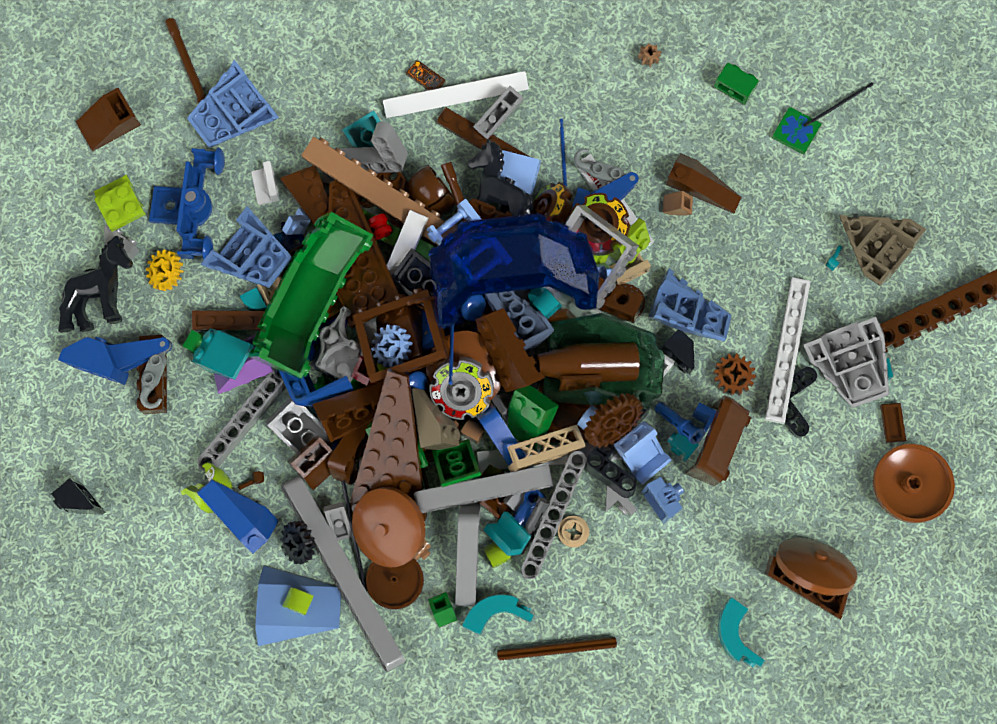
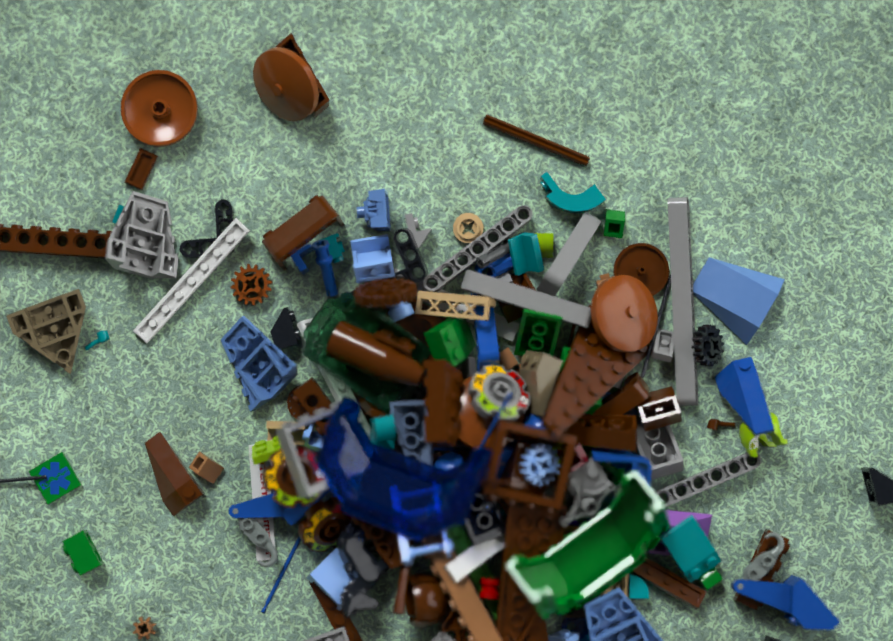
camera: 150 degrees left, 10 degrees up
(297, 601) = (732, 293): lime brick -> none
(729, 634) = (381, 83): teal arch -> none

